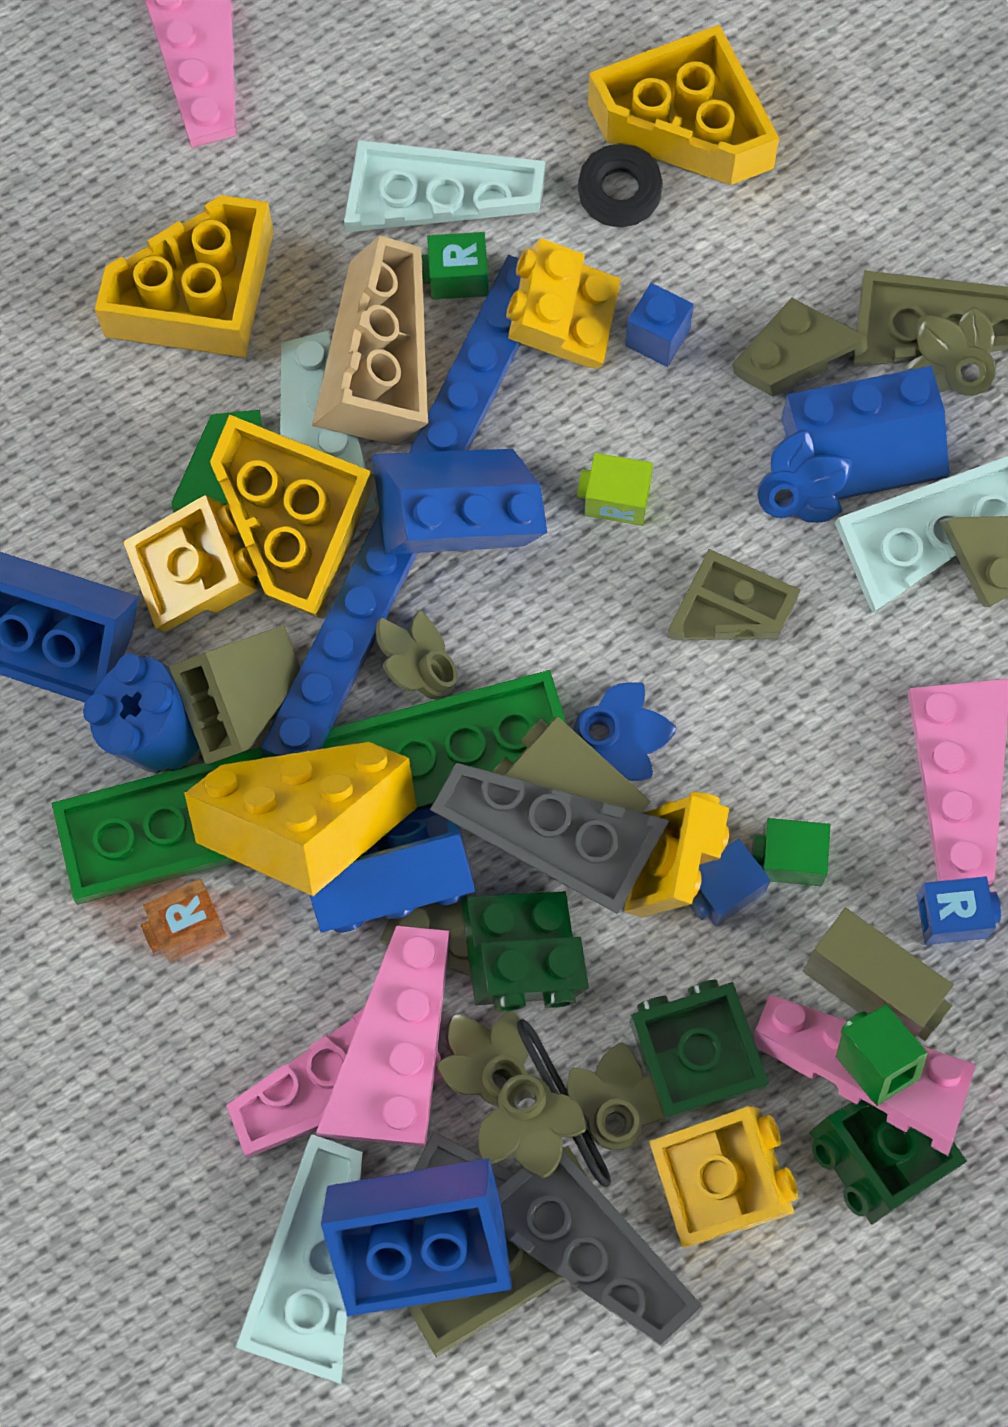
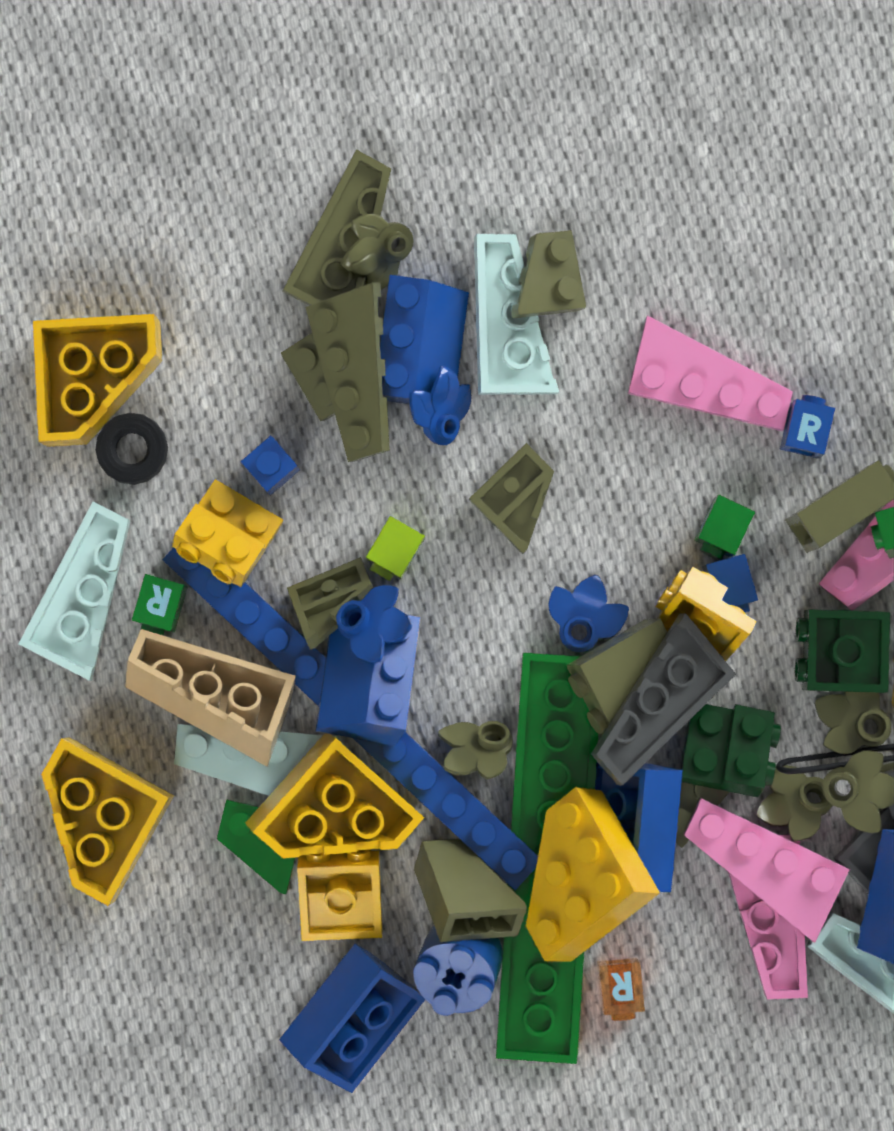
camera: 75 degrees left, 15 degrees up
(520, 472) = (377, 624): none -> blue plate
(530, 436) = (321, 597): none -> olive wing
(804, 362) = (350, 357): none -> olive wing

